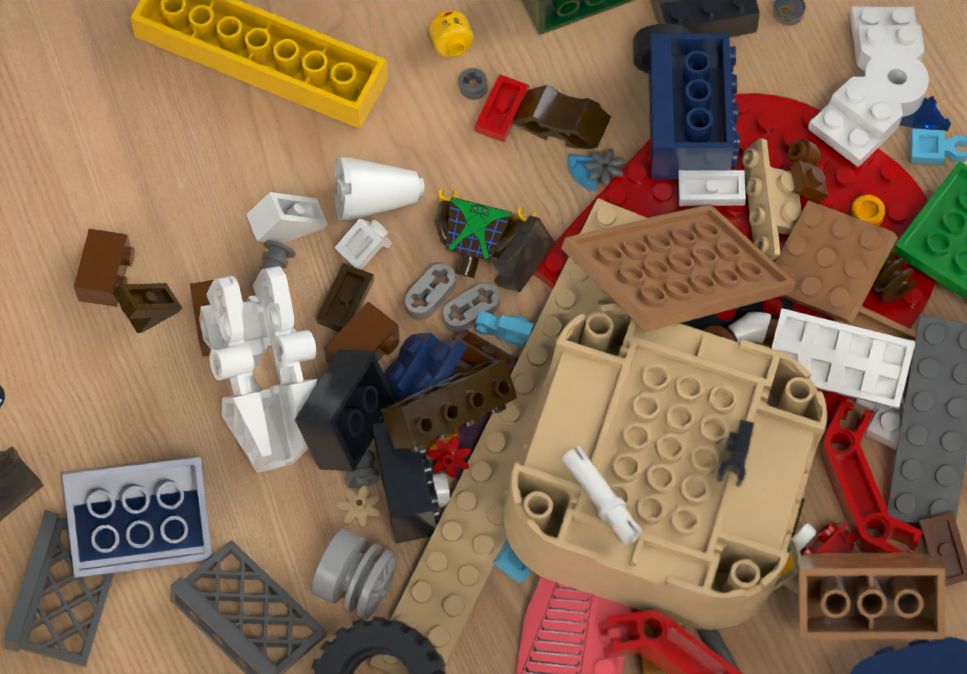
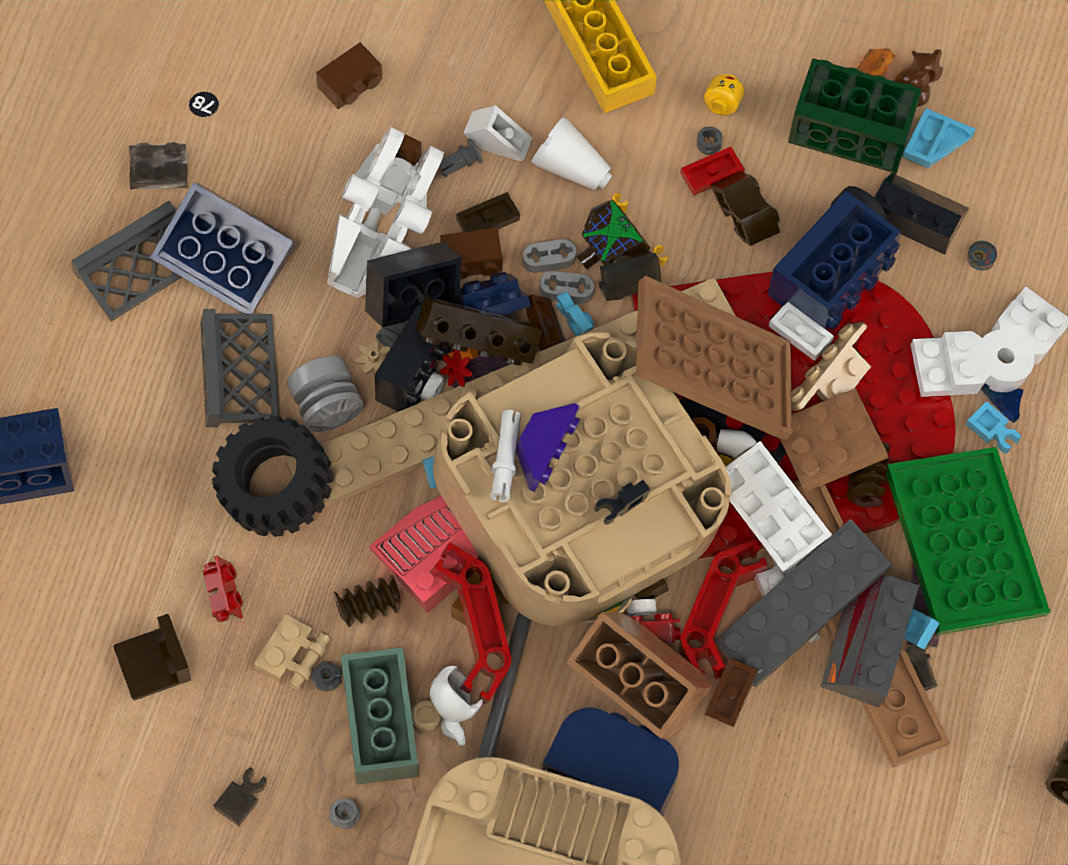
camera: 35 degrees right, 0 degrees up
(147, 304) = (355, 120): dark brown slope -> none
(363, 242) = (534, 188): white bracket -> none
(579, 173) = (731, 256): dark azure tile -> none
(604, 166) = (745, 262): dark grey plant -> none
(624, 458) = (544, 441): none -> dark purple slope
(807, 177) = (873, 374): reddish brown plate -> none
(868, 209) = (897, 431): light orange tile -> none

